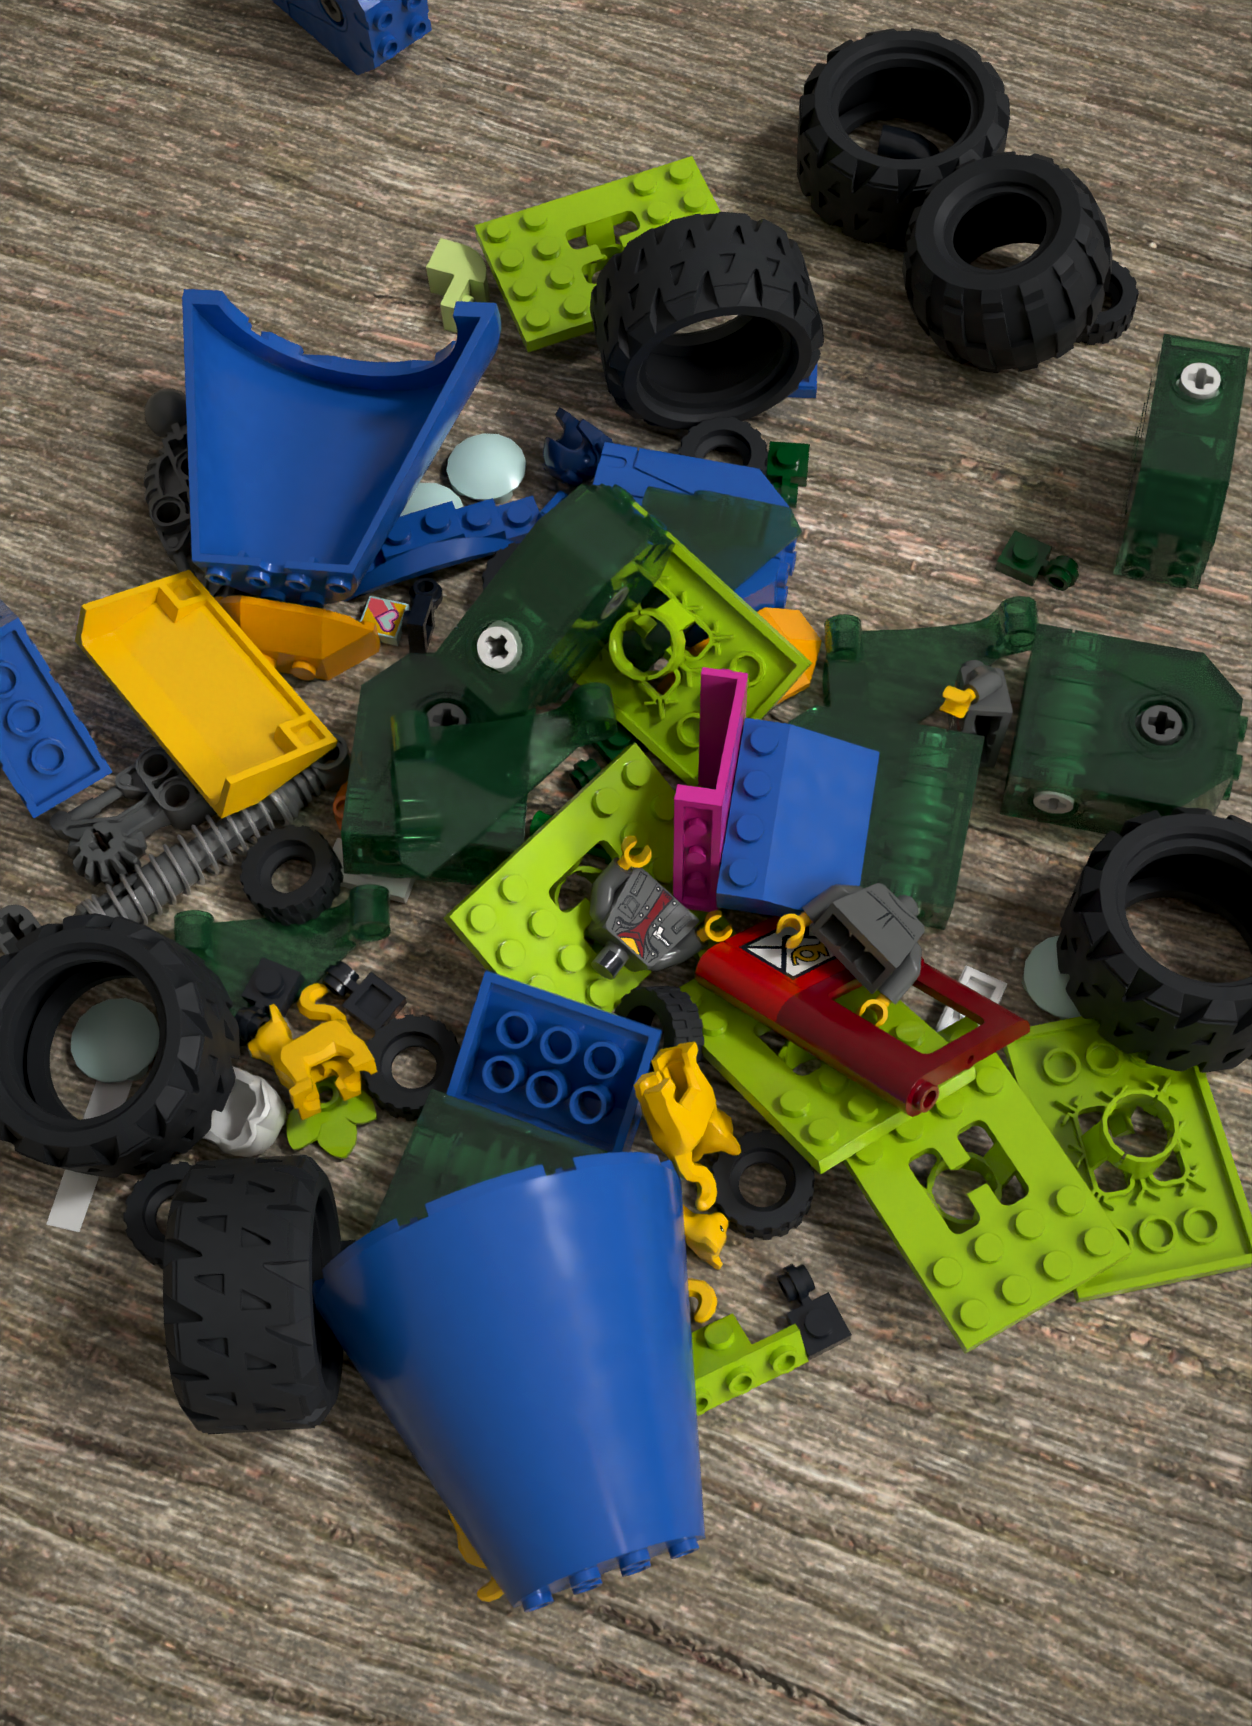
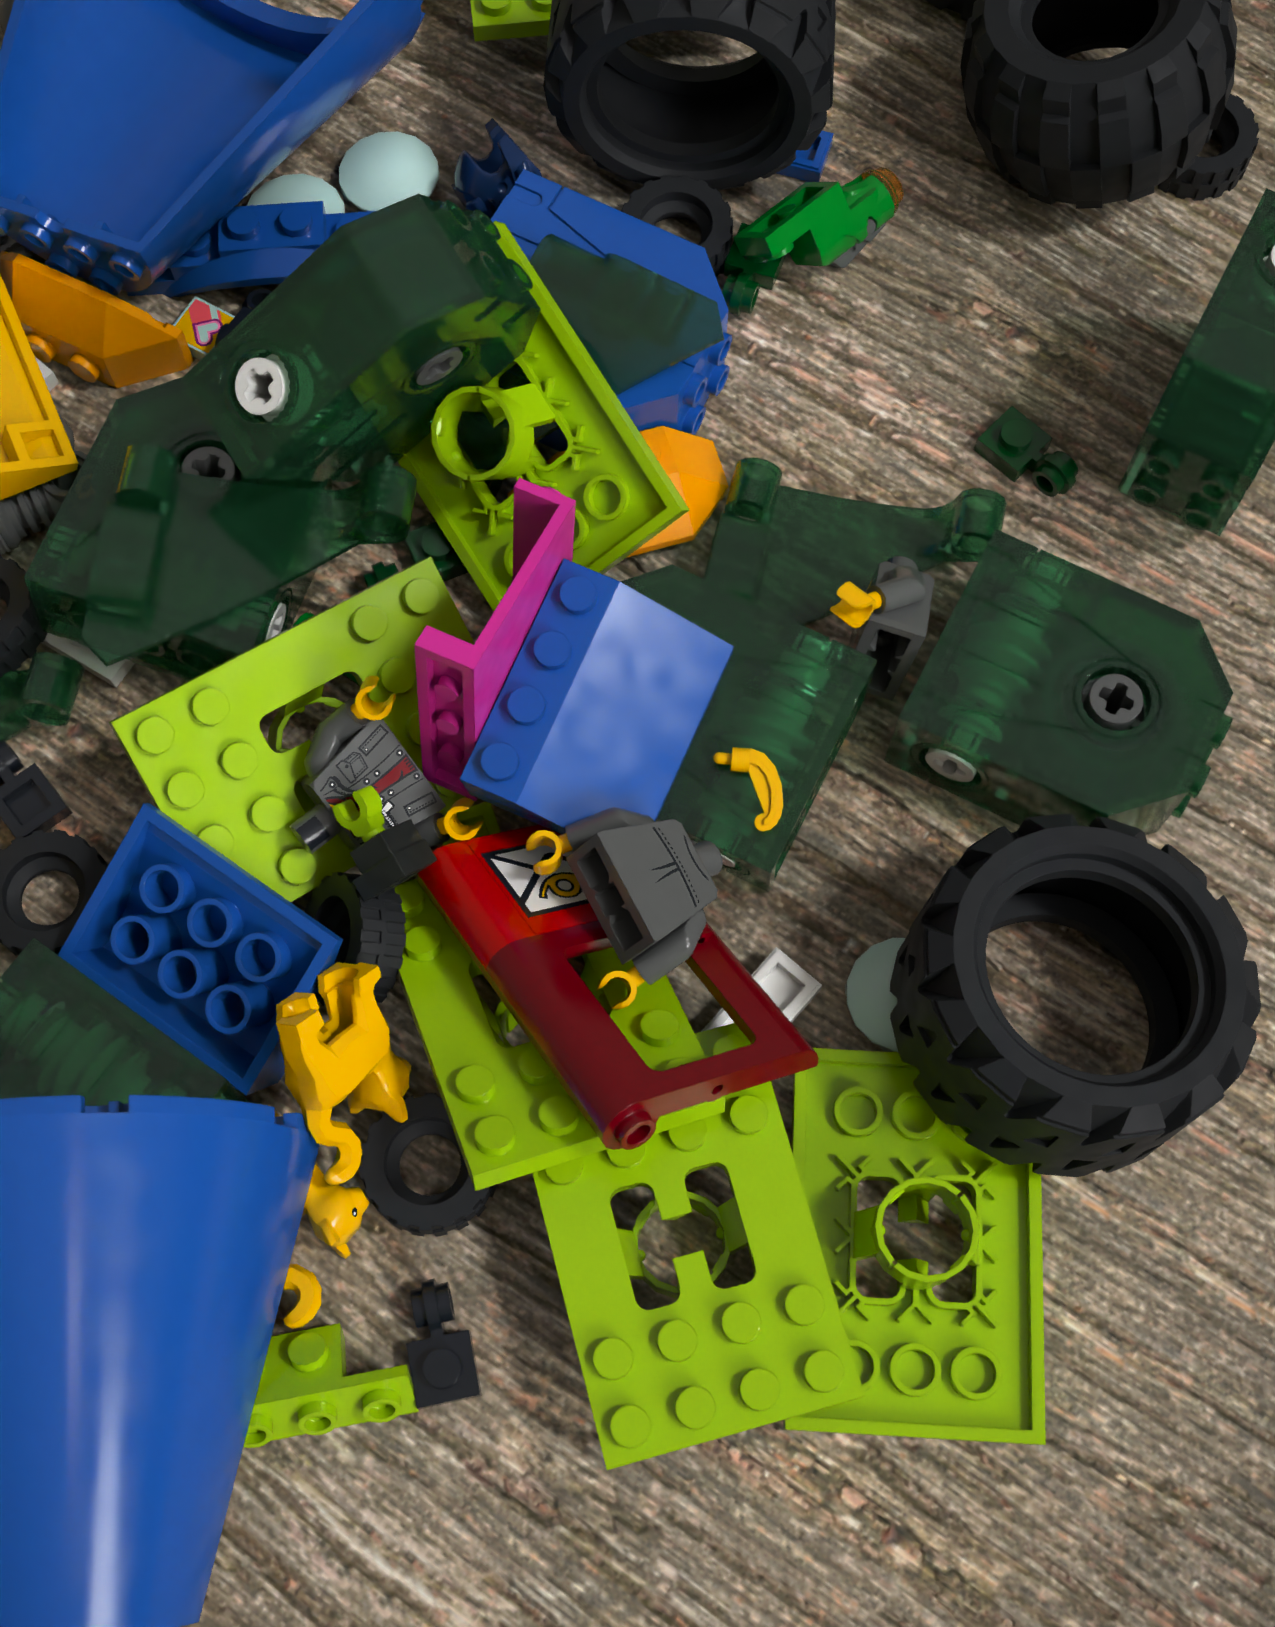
camera: 10 degrees right, 5 degrees up
(673, 963) = (386, 855): none -> pearl dark grey piece
(834, 425) = (824, 220): none -> green plate
(929, 841) = (764, 780): none -> yellow piece

